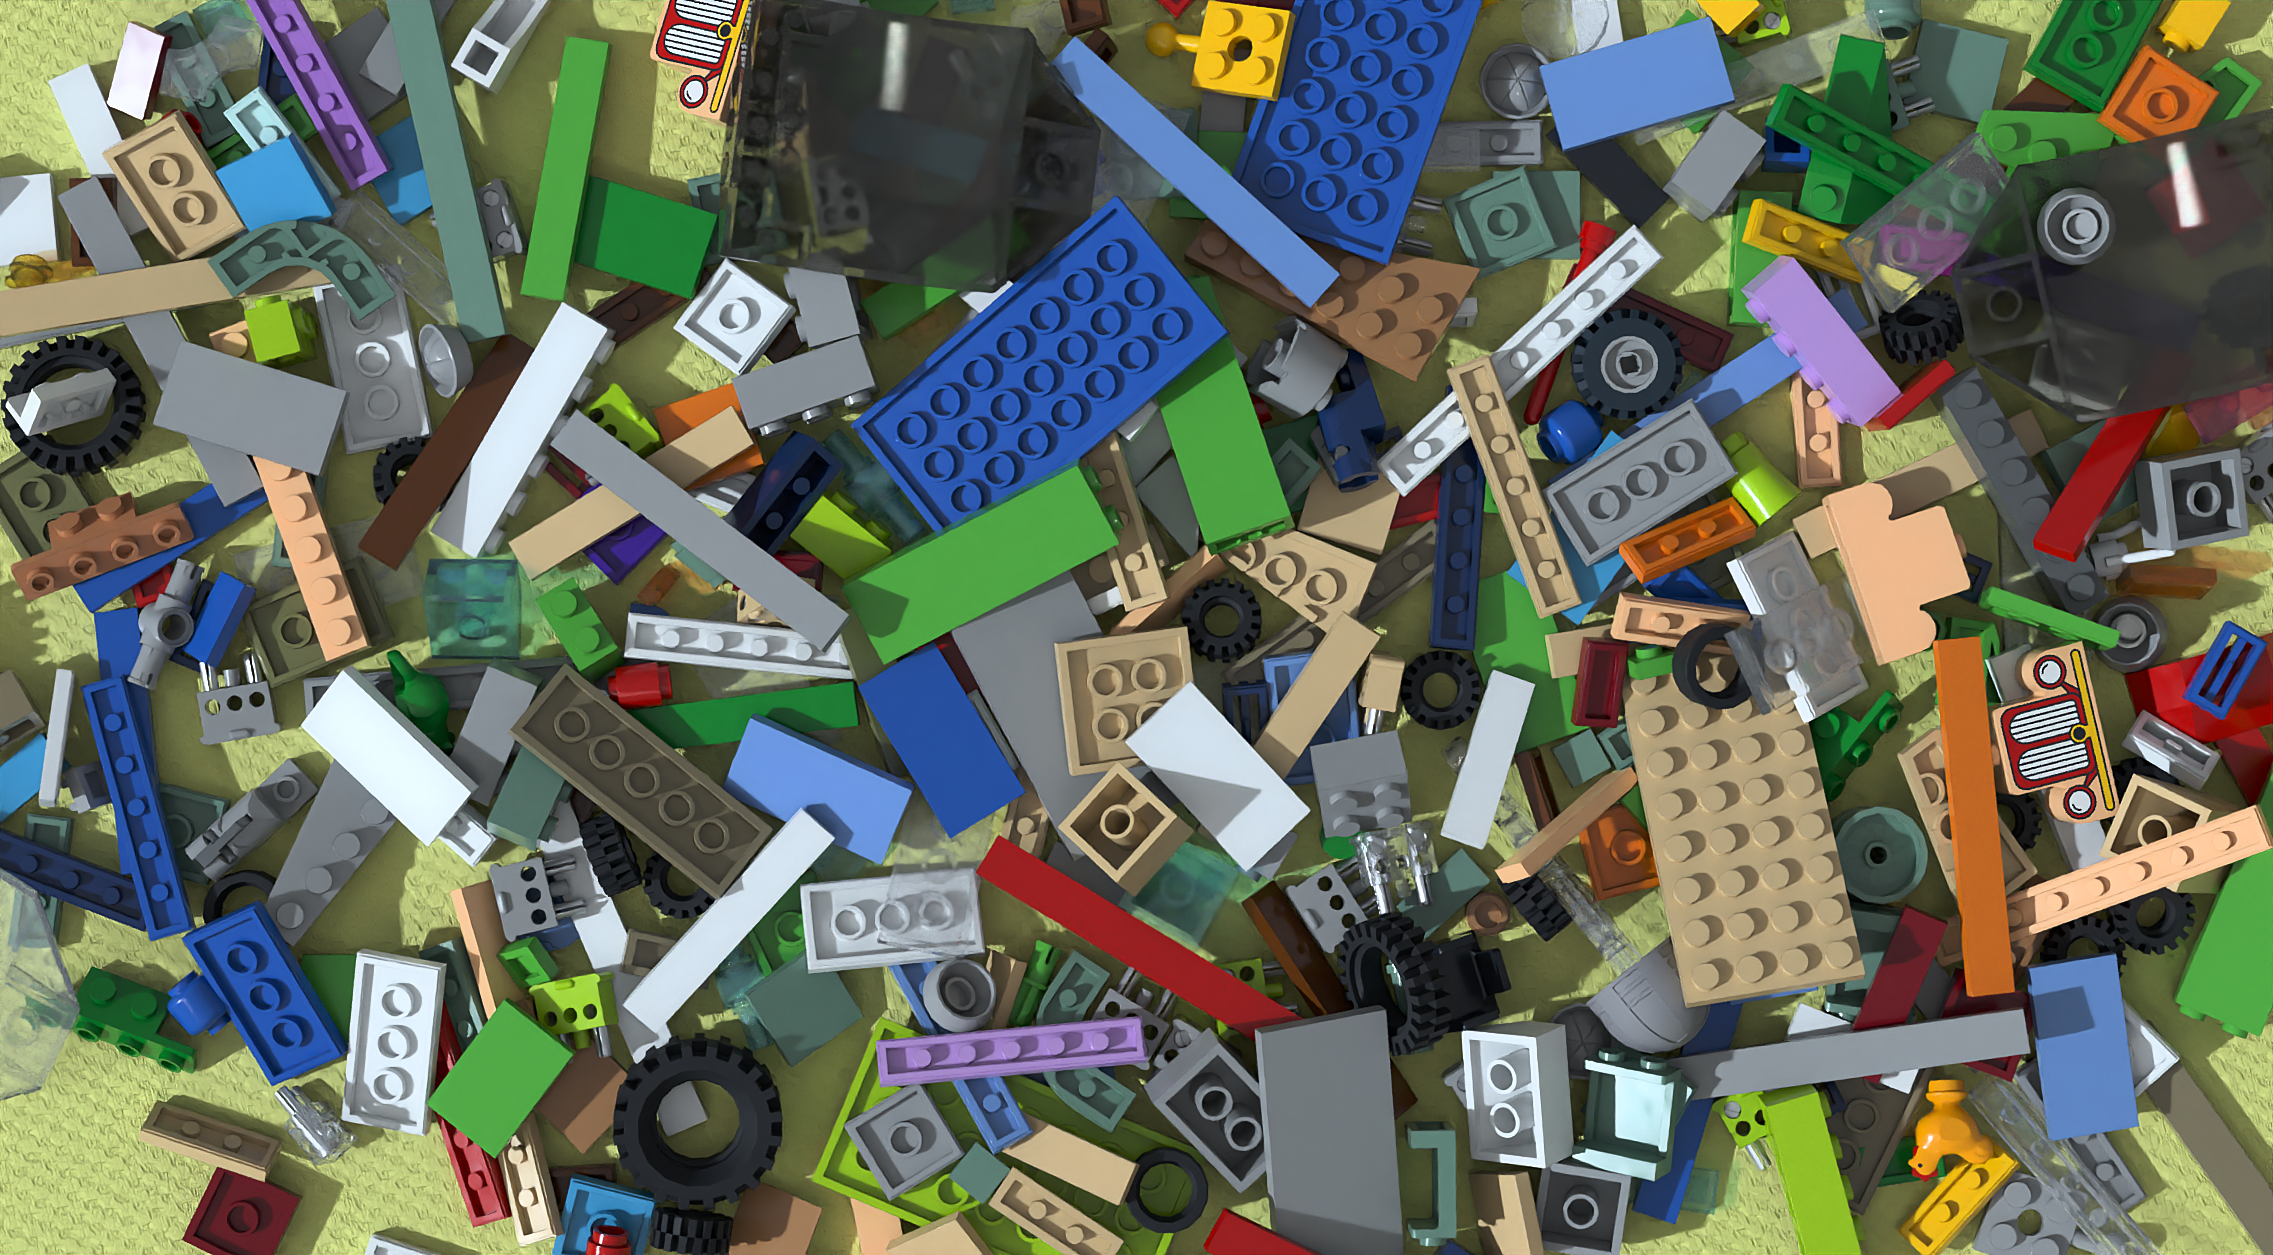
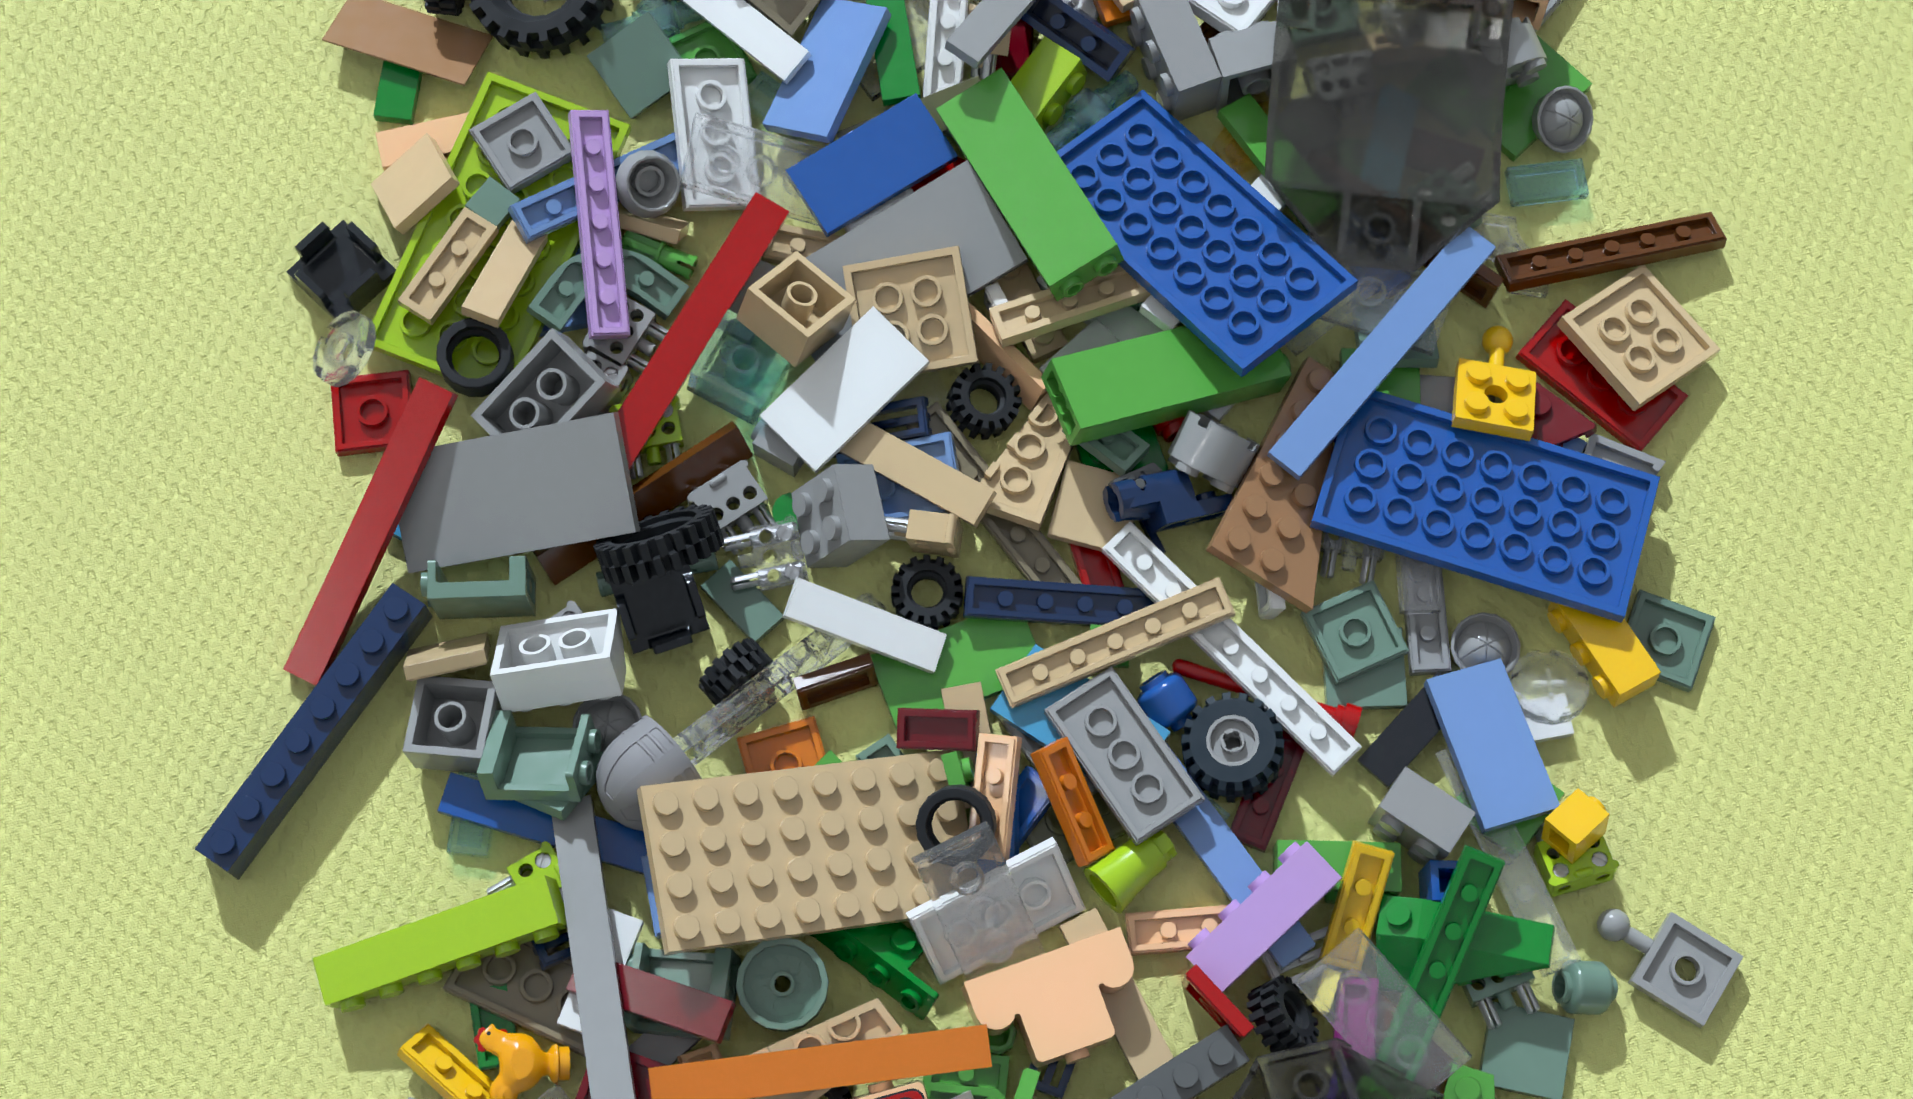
camera: 85 degrees right, 15 degrees down
(1487, 913) = (720, 637): medium nougat tile -> none
(1567, 825) = (804, 693): light nougat tile -> none
(1581, 758) = (868, 722): sand green tile -> none

